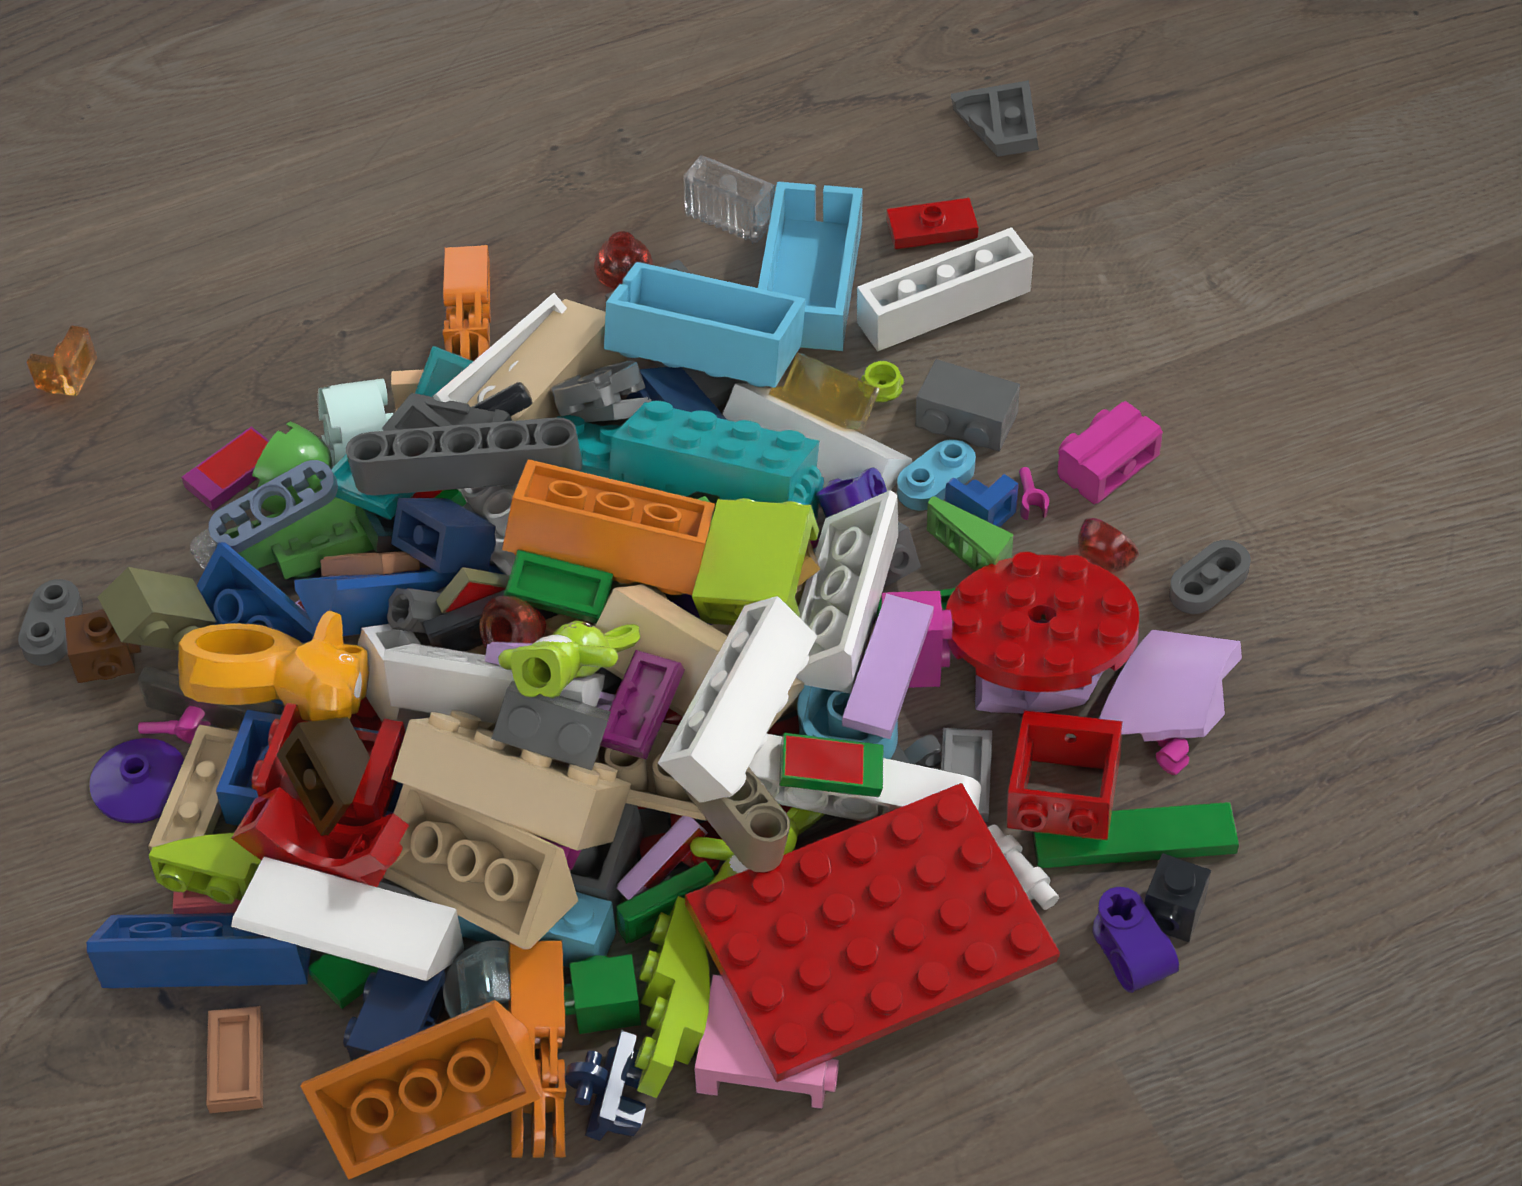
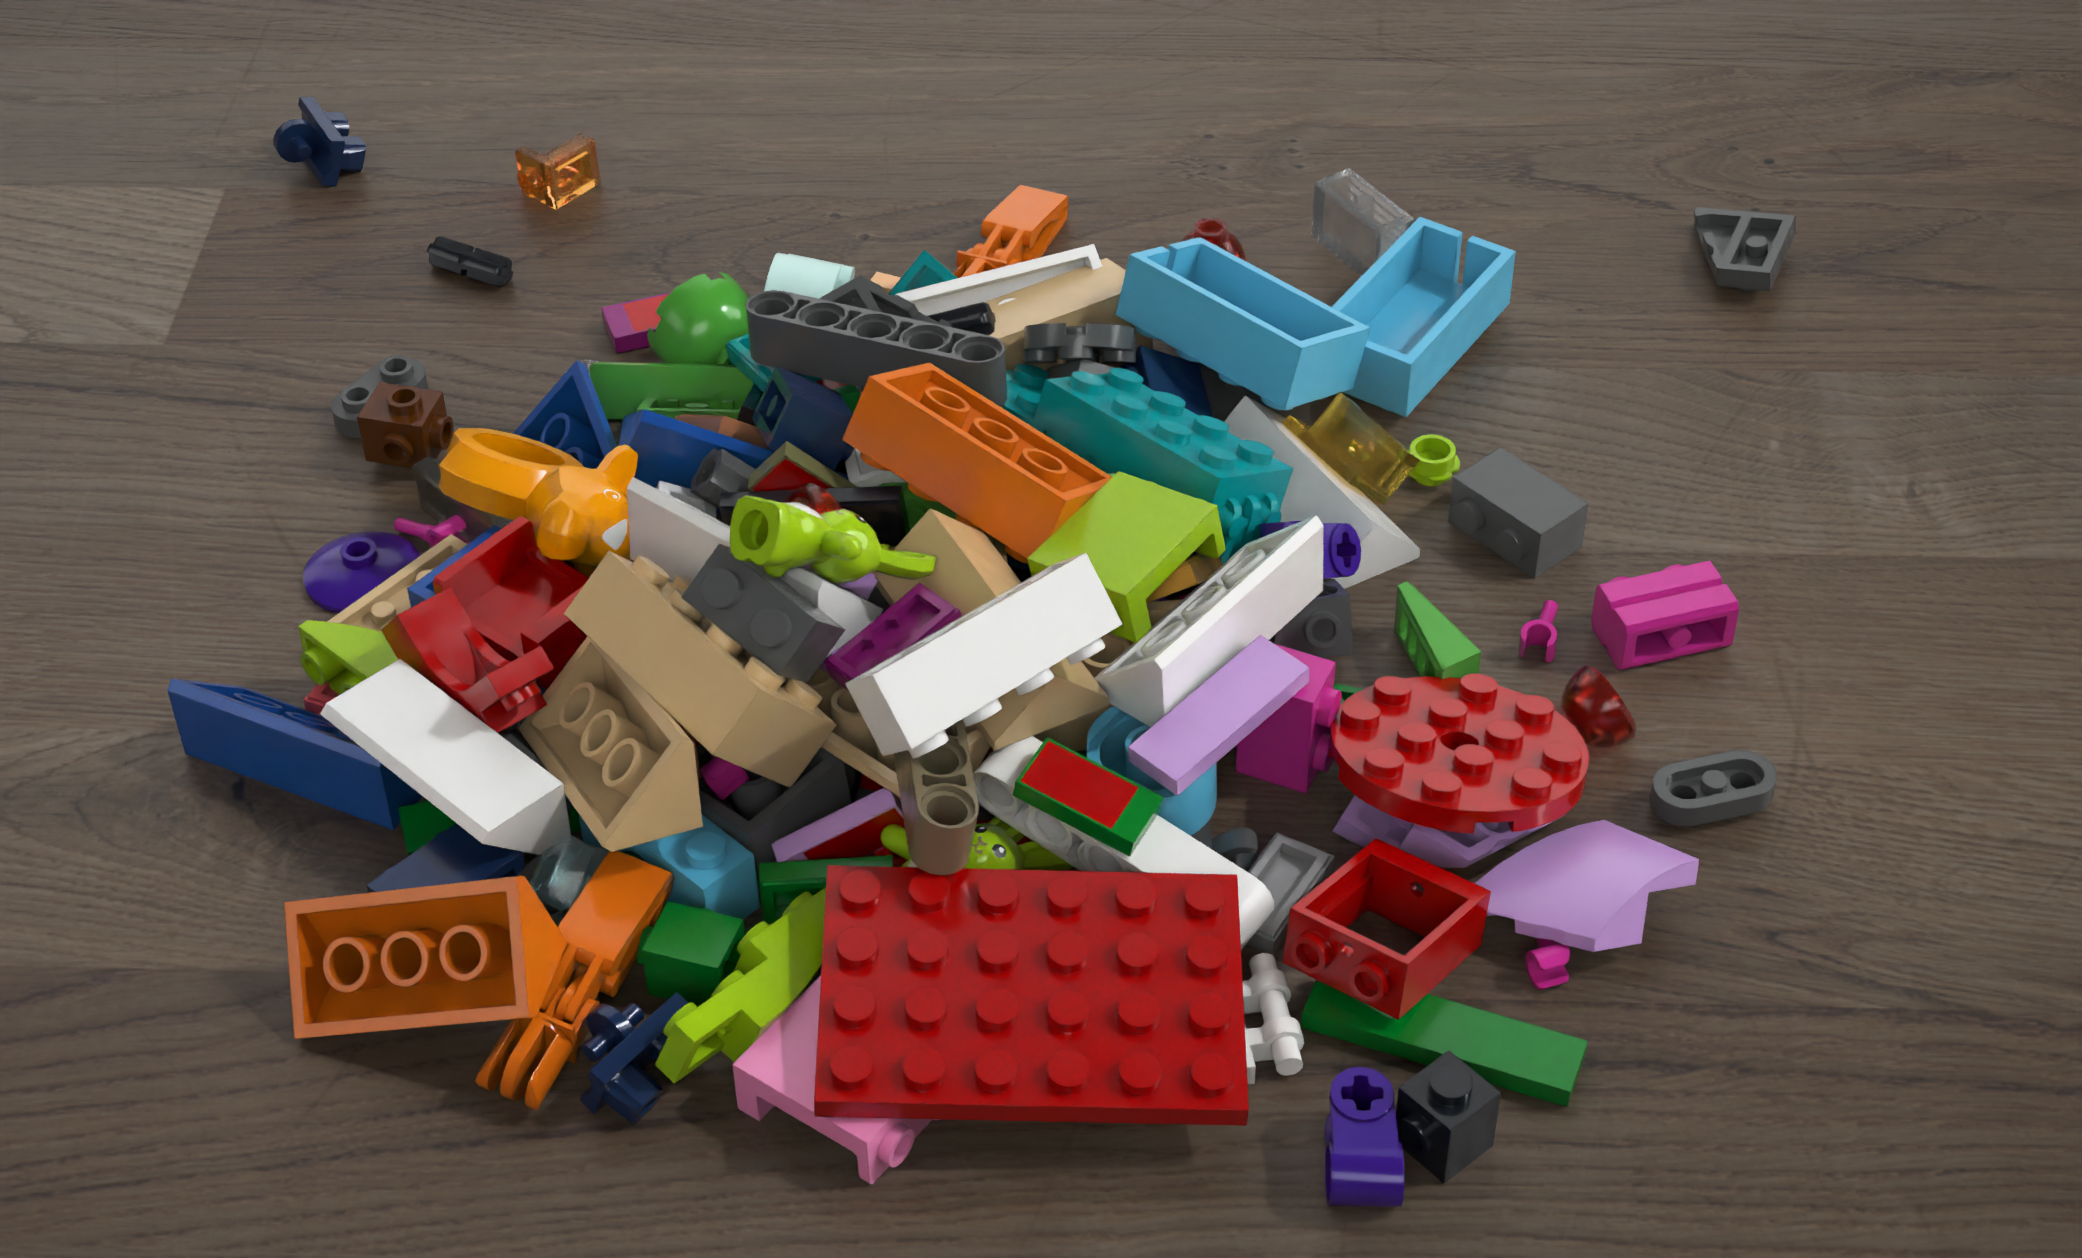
camera: 25 degrees right, 10 degrees down
(32, 472) = (479, 265): none -> black piece
(154, 608) = (466, 391): olive brick -> none
(235, 1059) = (263, 871): nougat tile -> none
(278, 486) = (676, 360): sand blue beam -> none
(325, 768) = (513, 585): dark brown slope -> none
(559, 586) = (881, 494): green tile -> none
(932, 223) = (1594, 326): red plate -> none
(936, 467) = (1442, 571): medium azure plate -> none
(944, 289) = (1560, 385): white brick -> none
(990, 504) = (1484, 619): blue panel -> none

